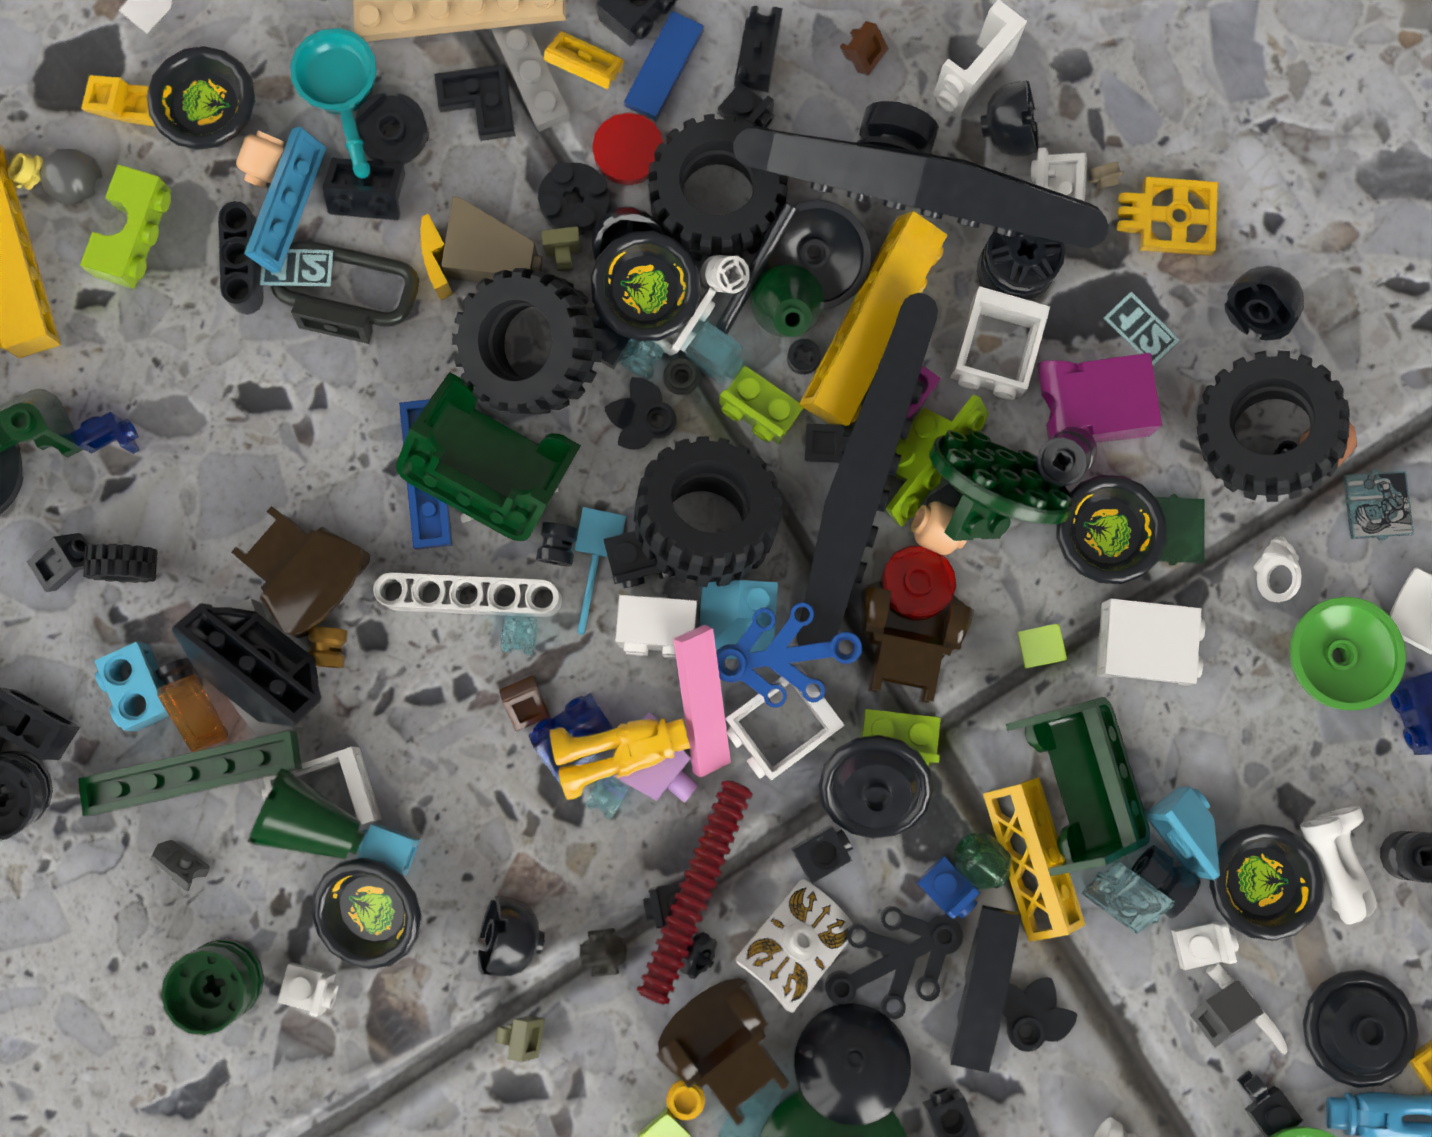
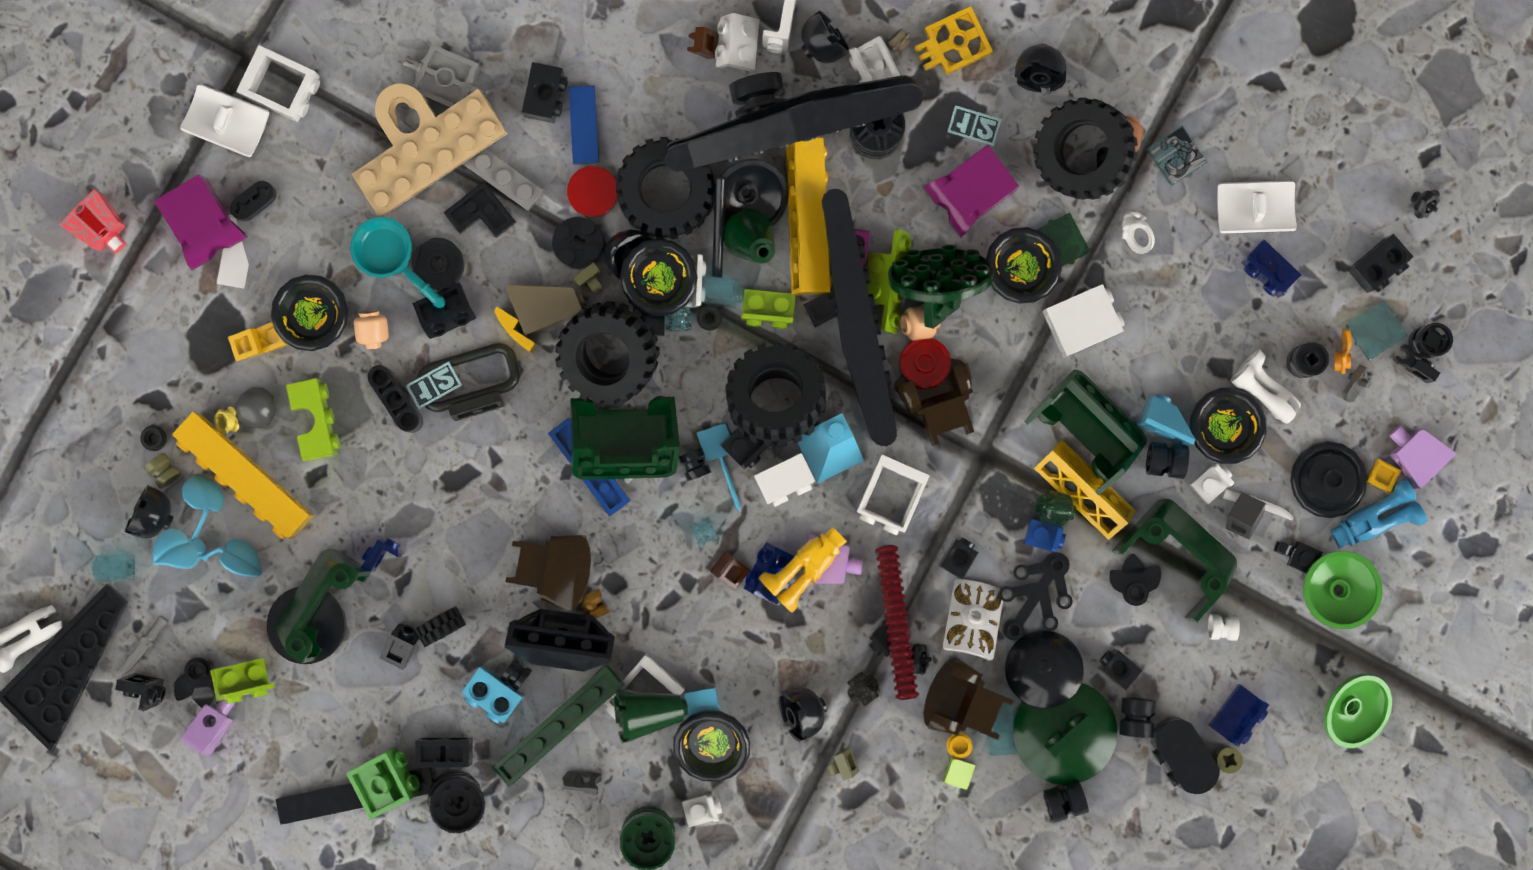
camera: 30 degrees left, 5 degrees up
(192, 713) = (538, 690): clear orange tile -> none
(285, 200) = (402, 347): dark azure tile -> none
(450, 590) = (646, 528): white beam -> none
(583, 59) = (532, 153): yellow tile -> none
(607, 797) = (812, 598): clear light blue wheel -> none
(636, 413) = (695, 357): black plate -> none
(702, 700) = (838, 509): bright pink tile -> none
(716, 273) = (701, 241): white wheel -> none
(748, 106) = (652, 124): black bracket -> none
(758, 49) = (637, 82): black hinge -> none
(779, 656) = (869, 457): blue plant -> none
(806, 346) = (779, 270): black bush -> none
(876, 786) = (968, 501): black piece -> none
(906, 67) = (737, 42): none -> white bracket
(915, 730) = (966, 462): lime bracket -> none
(985, 988) = (1097, 581): black slope -> none
(1011, 310) = (888, 161): white window -> none
(1042, 646) = (1020, 359): lime slope -> none
(1067, 456) = (972, 239): black wheel -> none
(1121, 959) = (1168, 519): none -> dark green windscreen
(1127, 897) = (1151, 481): clear light blue piece -> none
(1369, 649) = (1220, 256): bright green dish -> none

